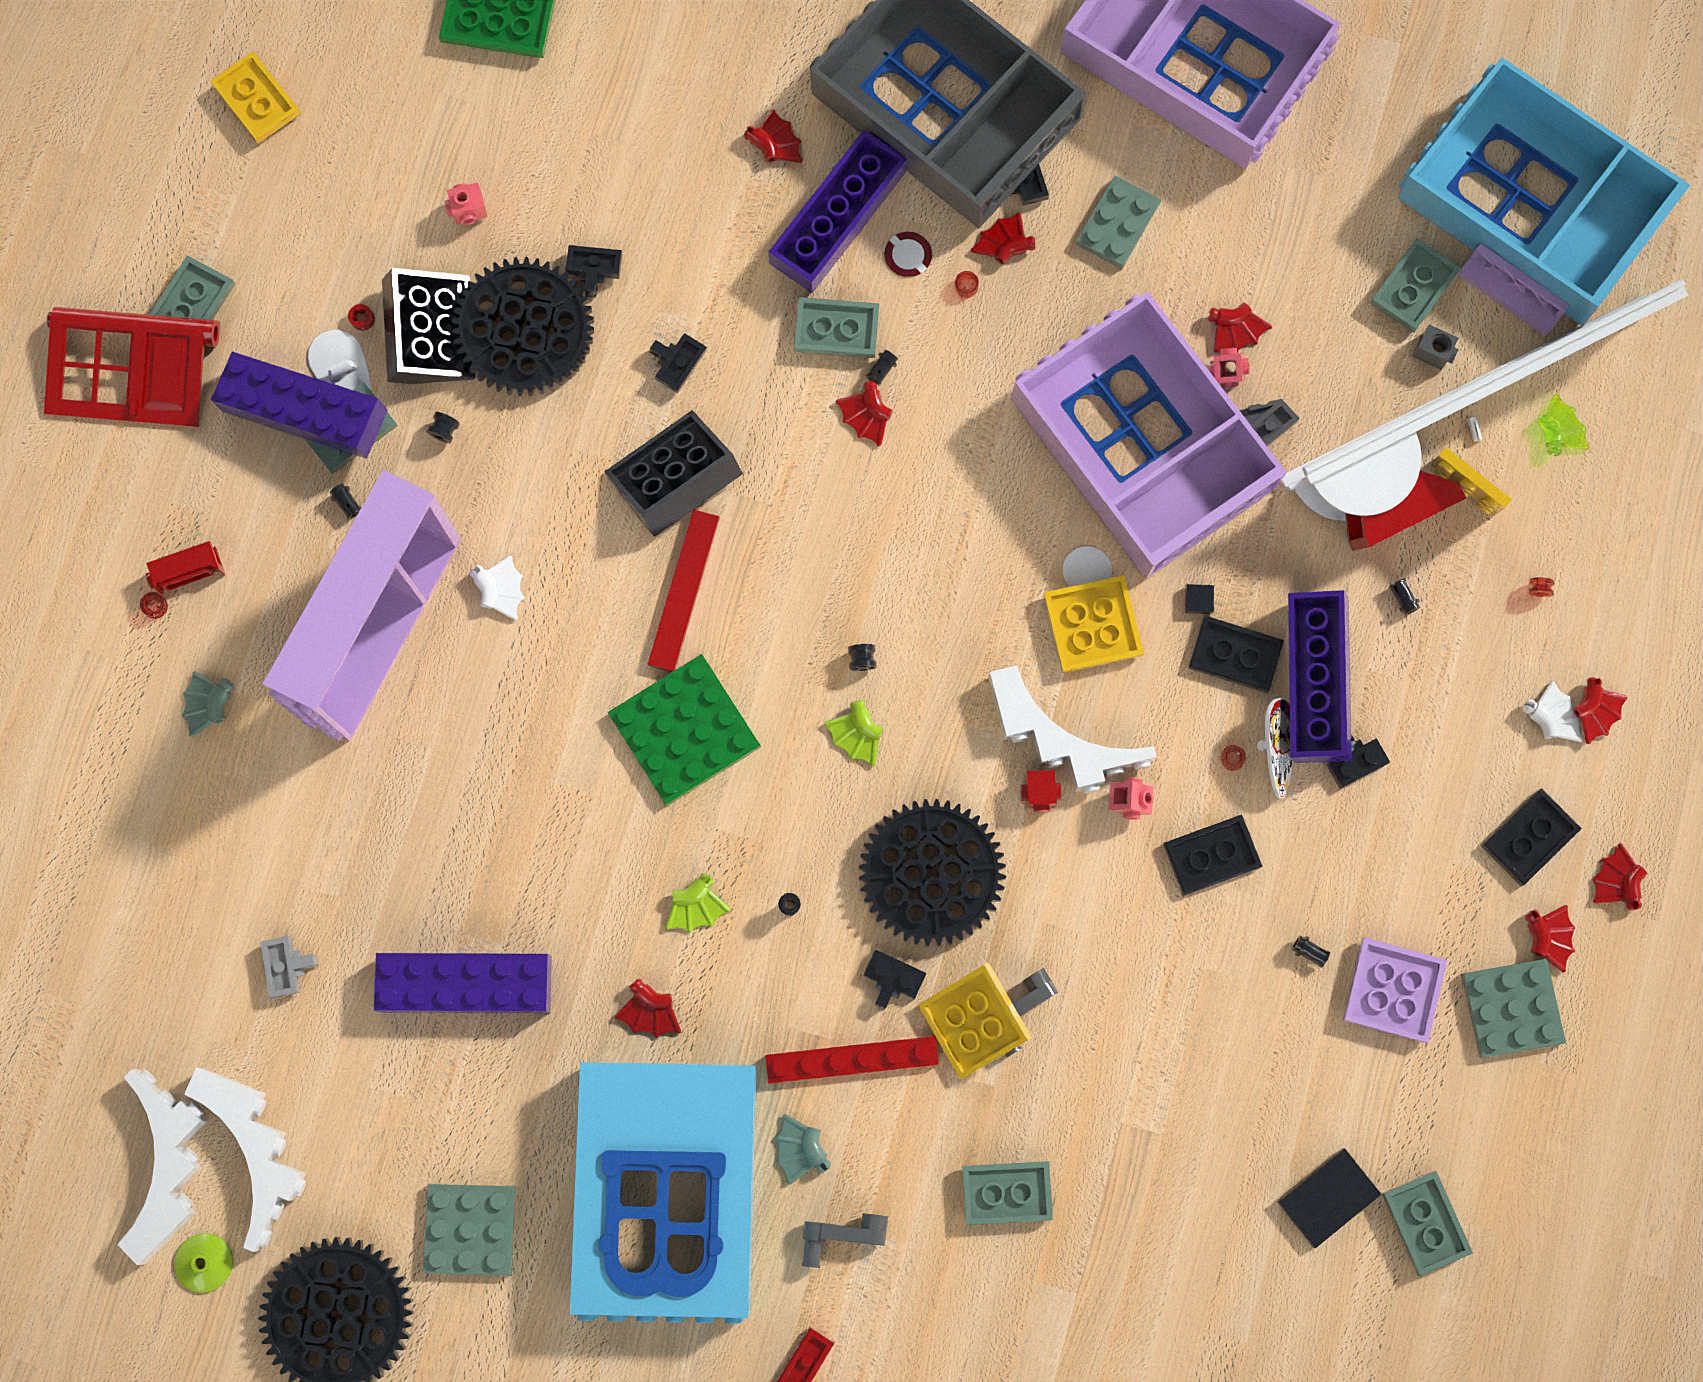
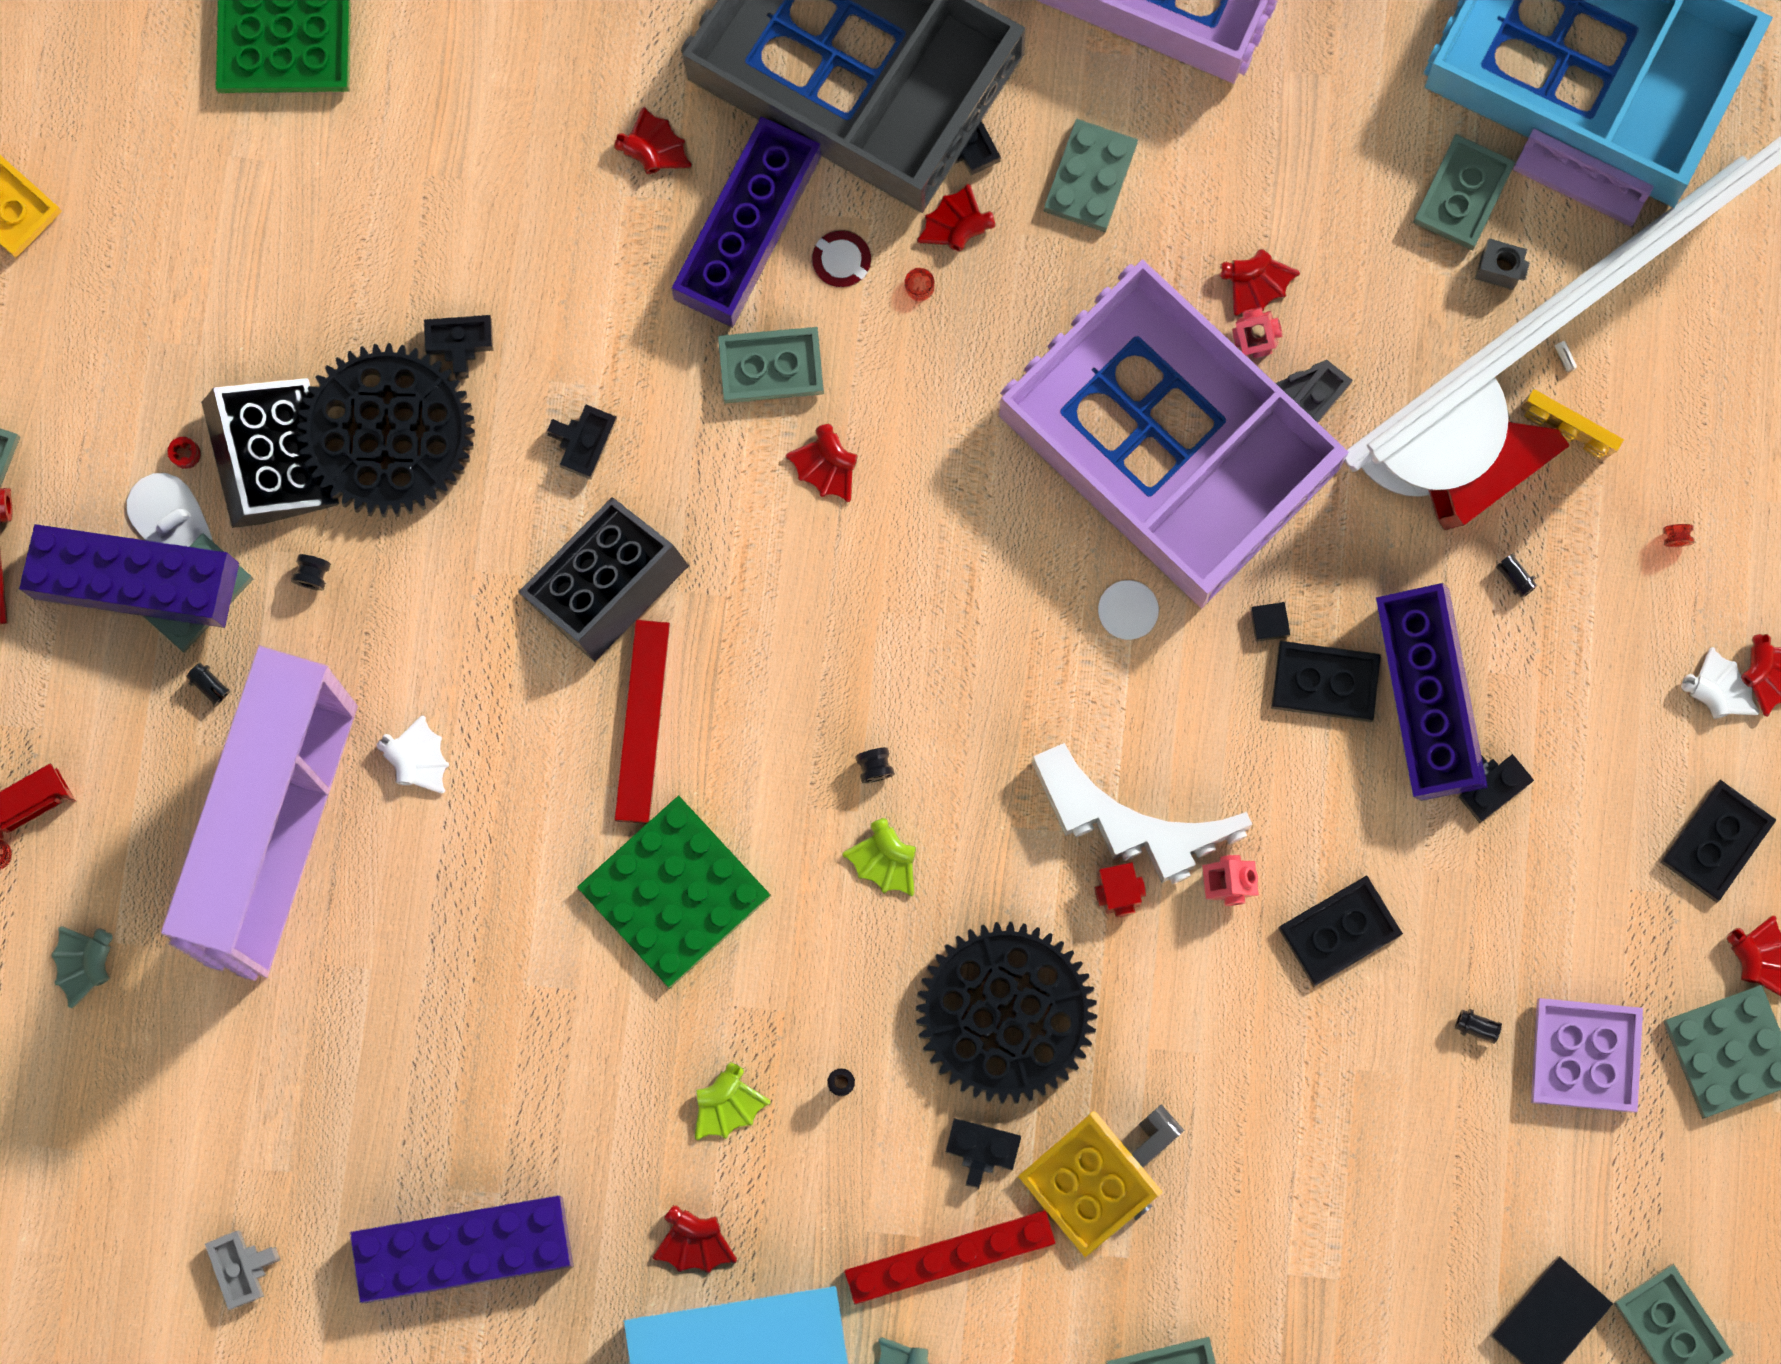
camera: 10 degrees left, 0 degrees up
(465, 203) = (287, 290): coral brick -> none
(882, 366) = (835, 402): black pin -> none
(1093, 624) = (1147, 675): yellow plate -> none
(1235, 749) = (1349, 798): clear red axle -> none
(1278, 745) = (1396, 784): shield -> none
(1562, 428) = (1670, 336): clear neon green arm -> none

